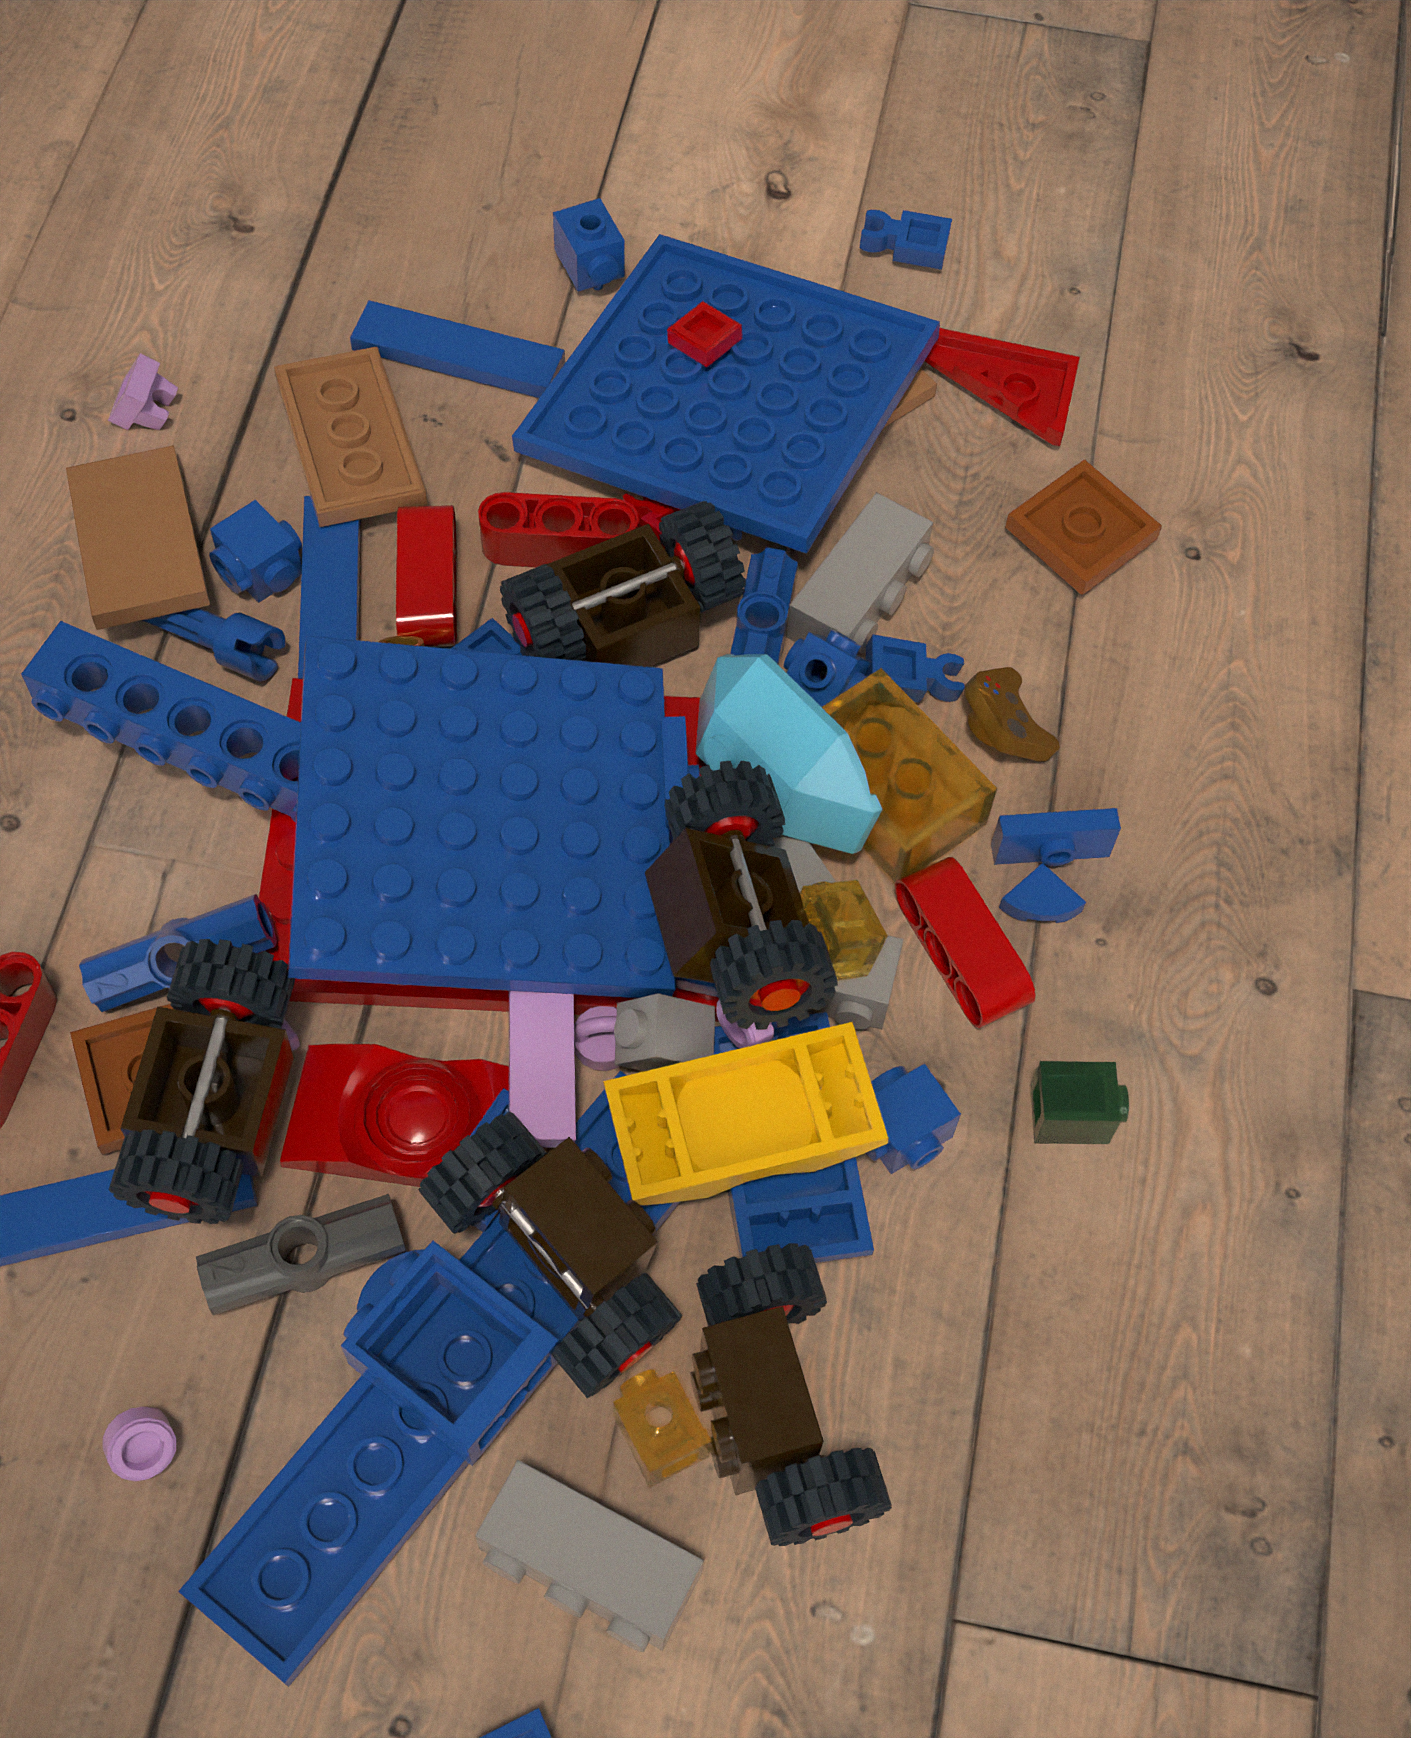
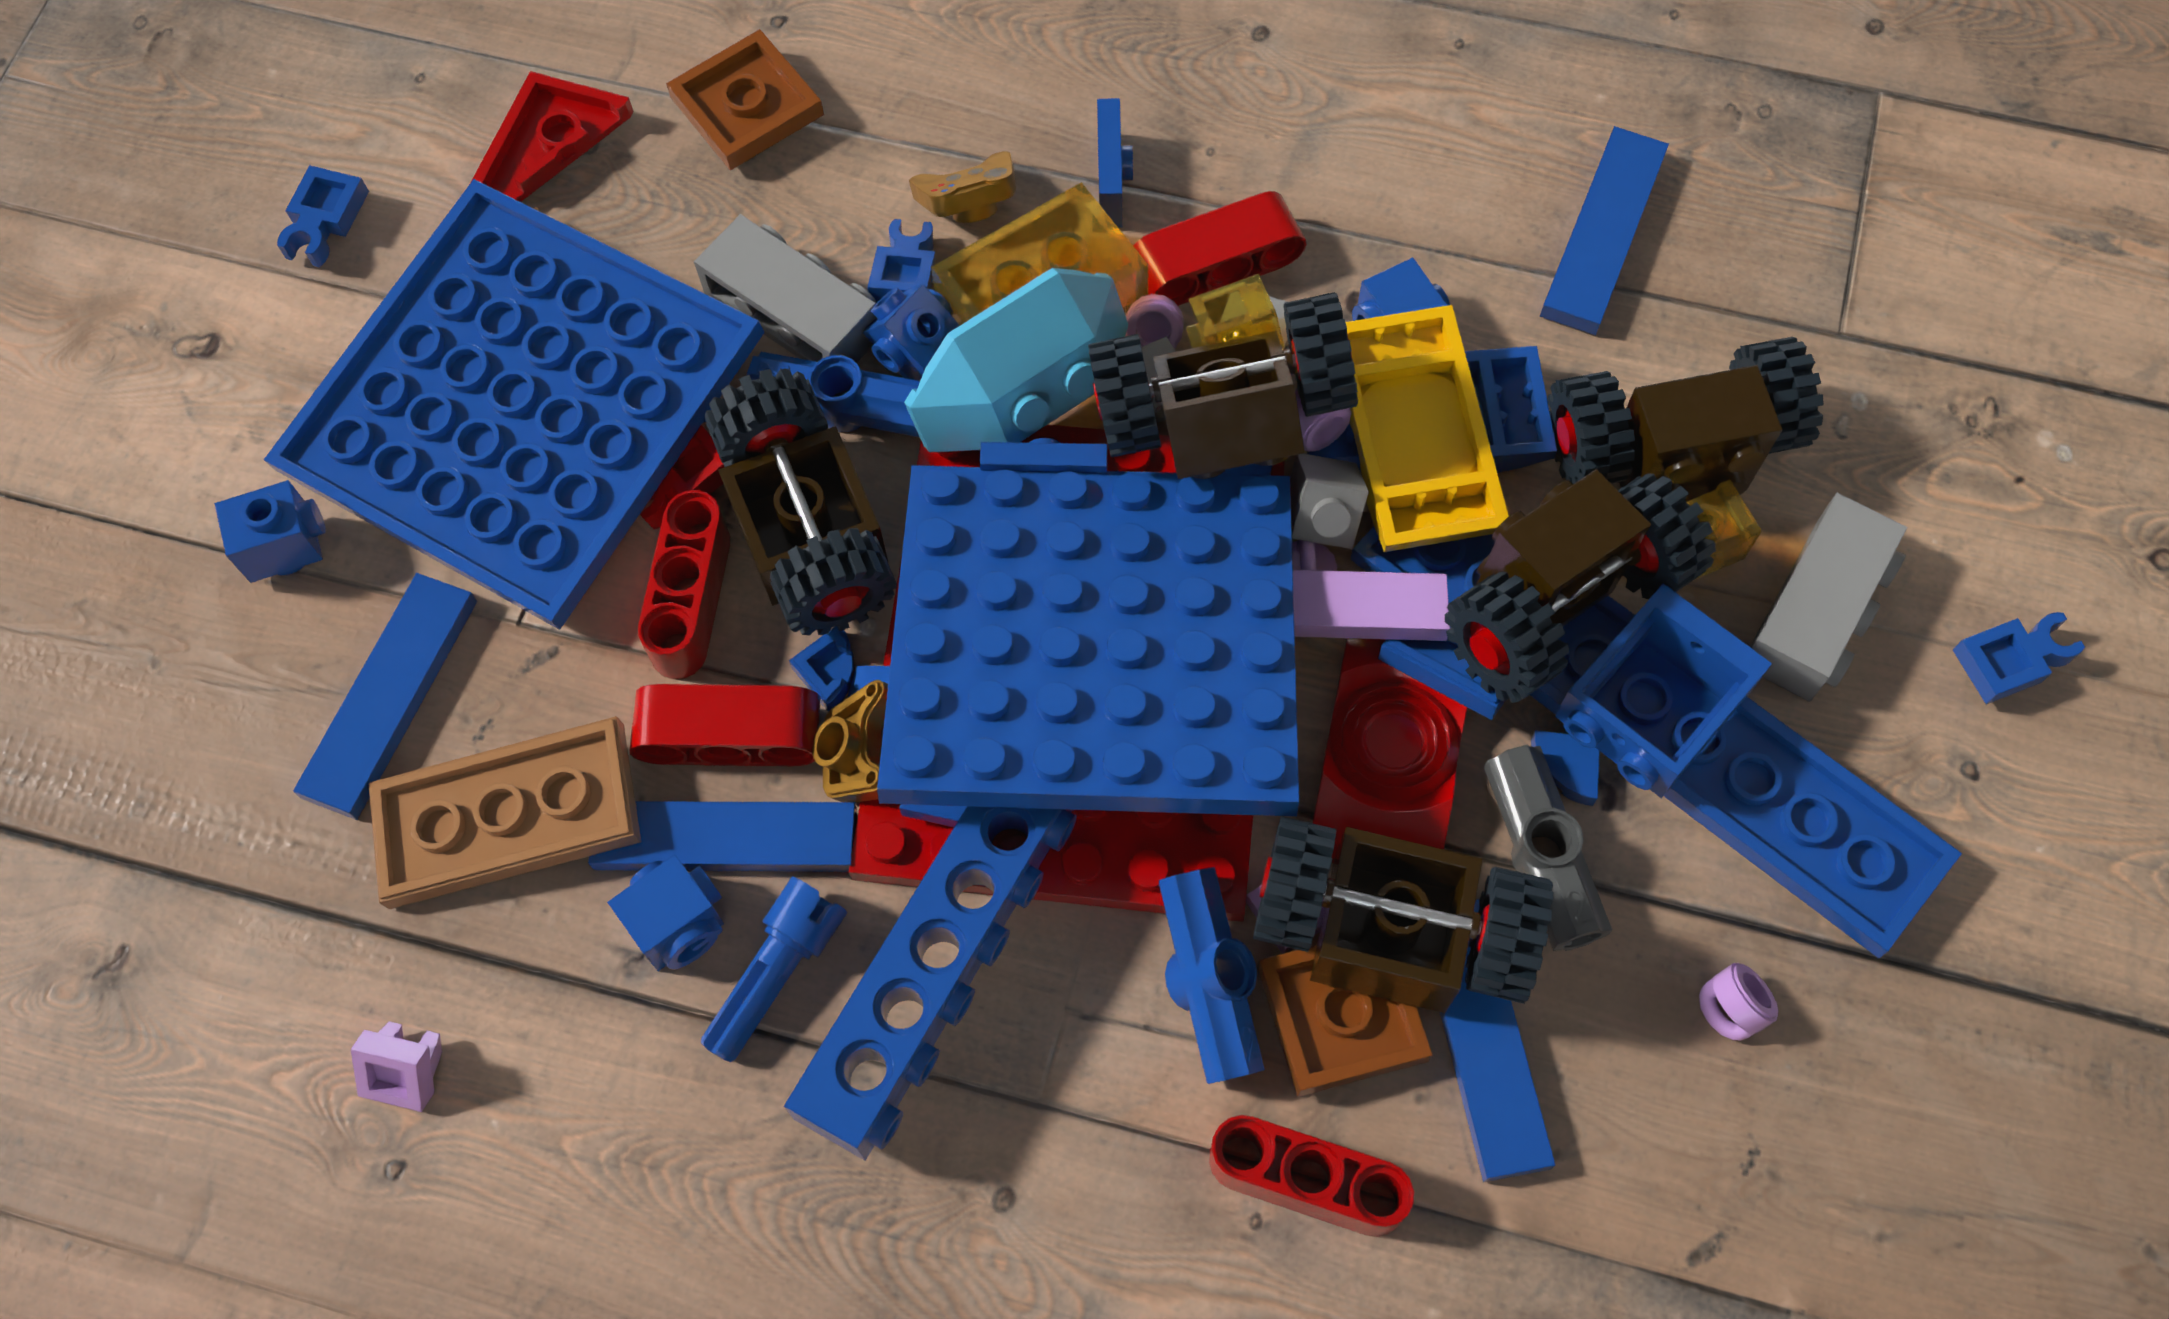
camera: 80 degrees left, 5 degrees up
(136, 537) = (624, 1056): medium nougat tile -> none
(704, 334) = (444, 408): red tile -> none
(876, 881) = (1154, 319): none -> lavender tile
(1042, 898) = (1167, 187): blue tile -> none
(1055, 1343) = (1604, 231): none -> blue tile
(1077, 1102) = (1387, 179): clear green brick -> none

